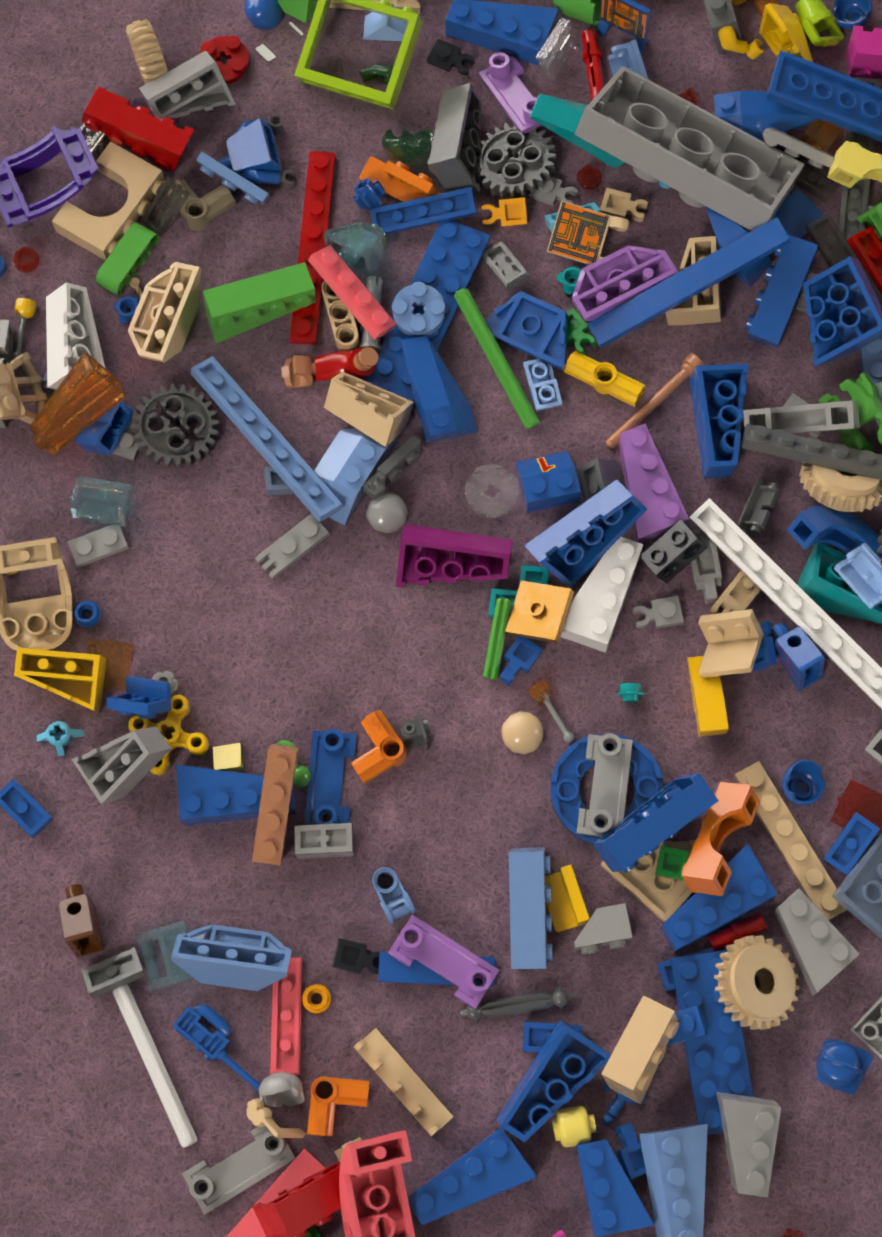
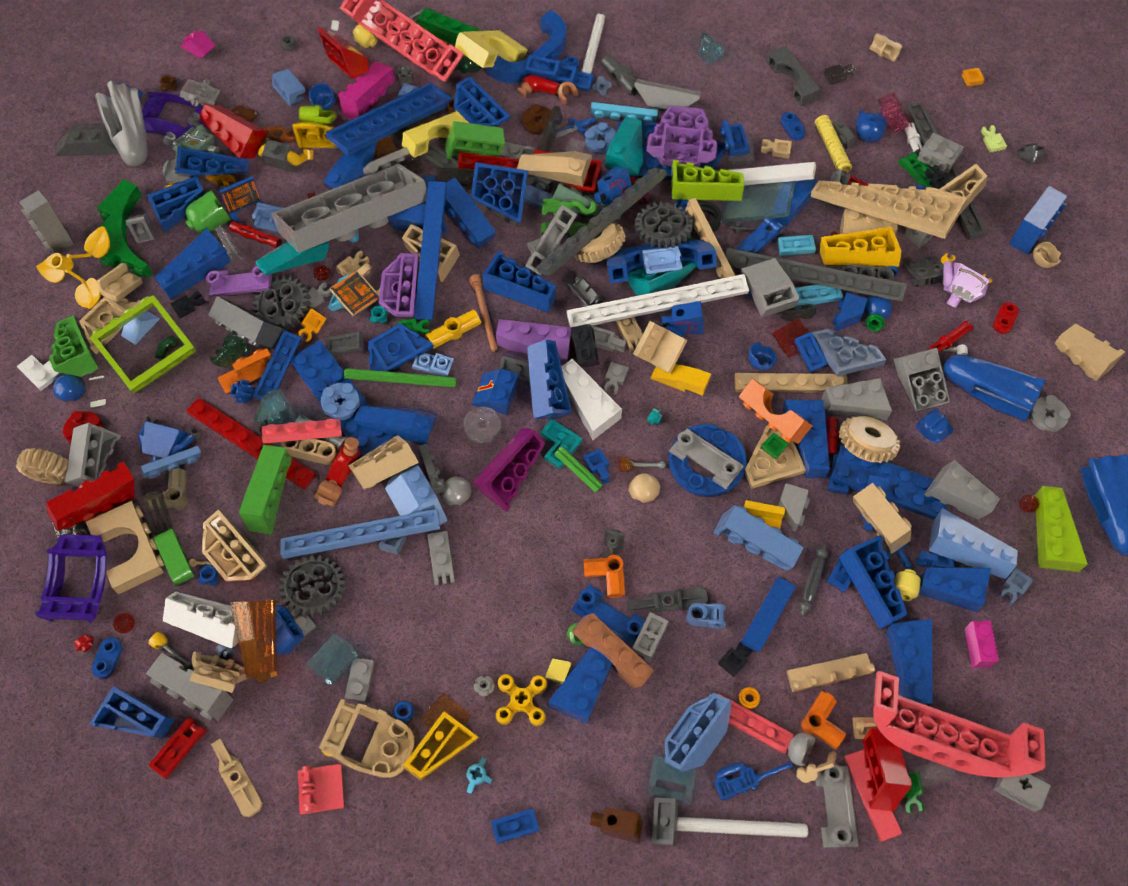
camera: 65 degrees left, 10 degrees down
(122, 763) = (526, 740): light grey wedge -> none
(142, 697) = (487, 701): blue bracket -> none
(398, 852) = (680, 600): none -> dark grey piece
(445, 959) = (766, 603): medium lavender brick -> none
(539, 611) = (578, 434): plate -> none
(655, 822) = (746, 437): blue wedge -> none

